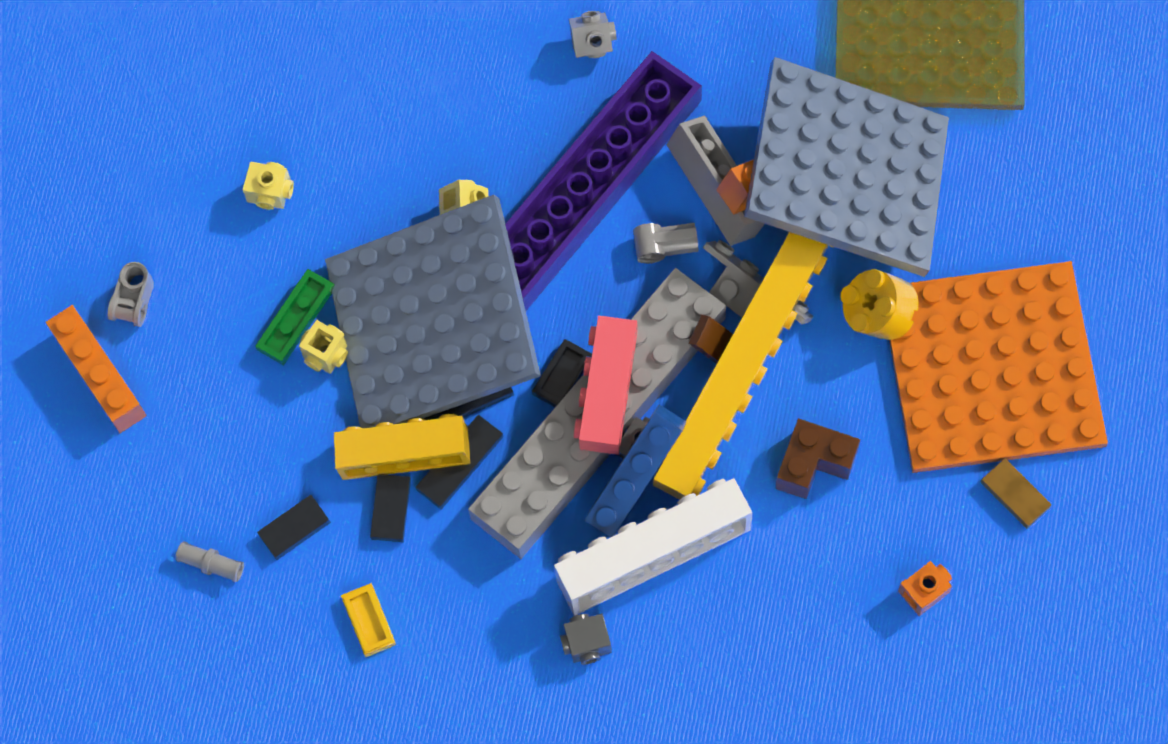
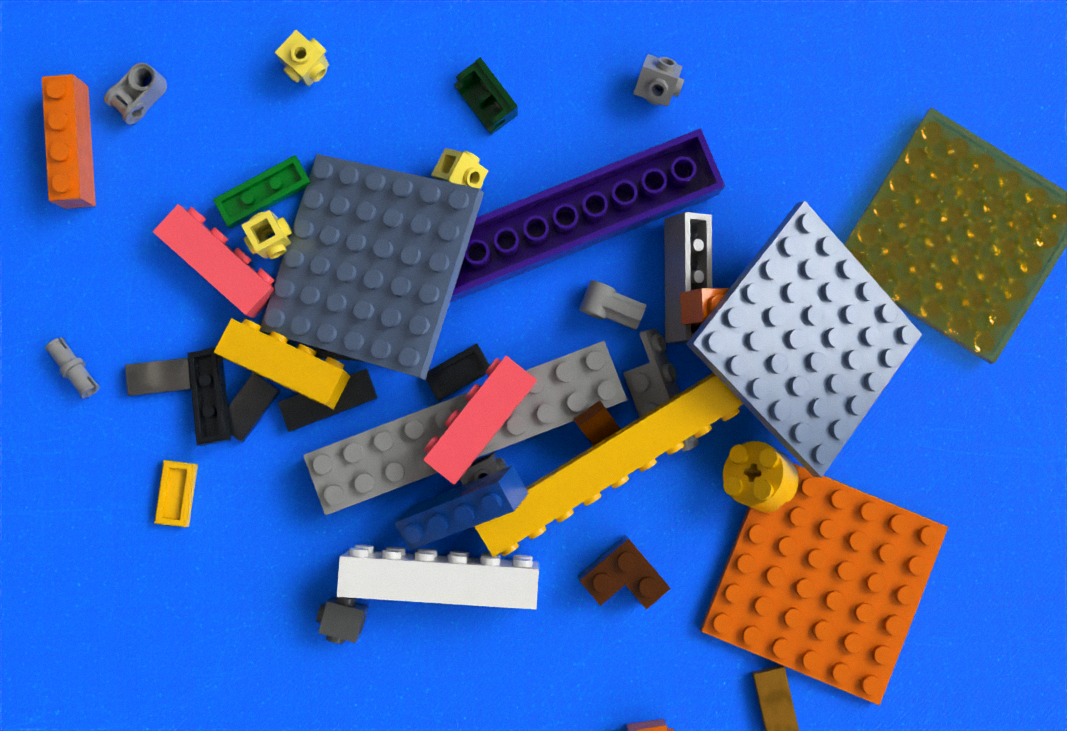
camera: 20 degrees right, 15 degrees up
(288, 396) = (215, 261): none -> coral brick
(350, 516) = (209, 397): none -> black tile
(448, 129) = (486, 96): none -> dark green hinge

